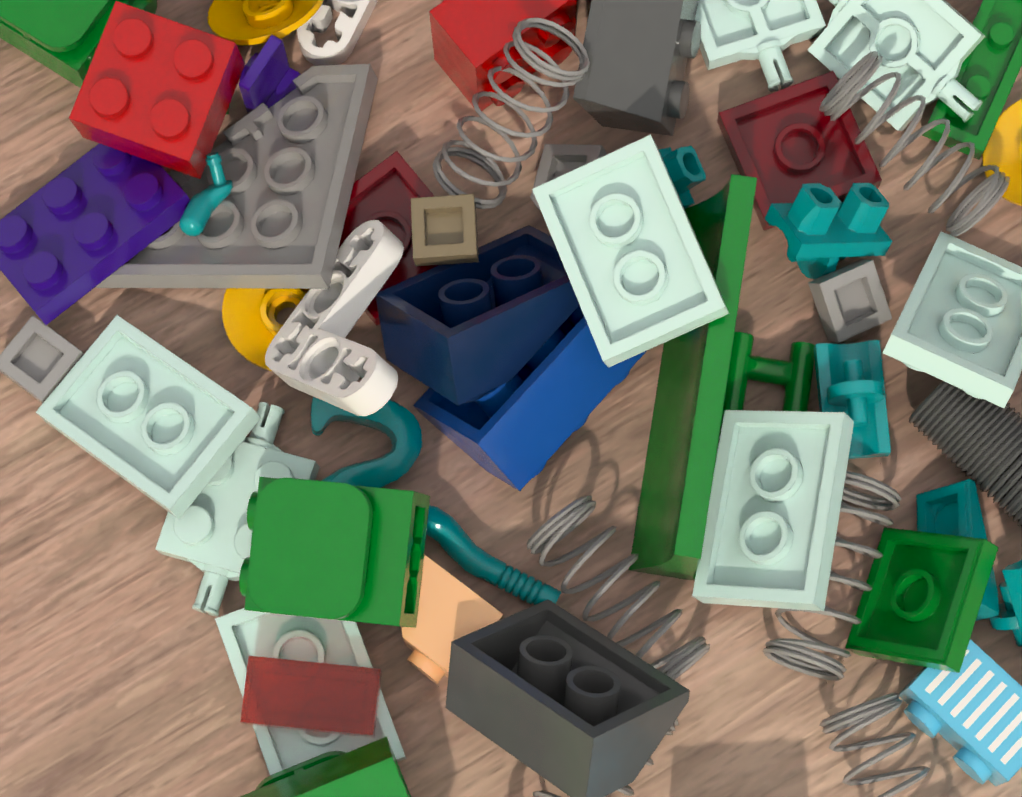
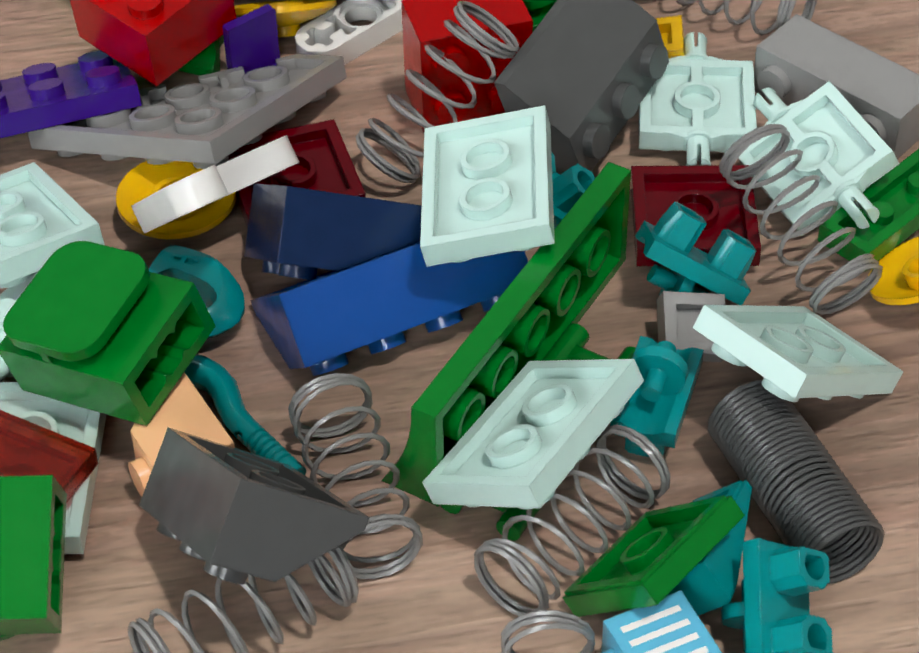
camera: 20 degrees right, 30 degrees down
(205, 202) = (148, 98): teal piece -> none
(444, 230) = (341, 164): dark tan plate -> none

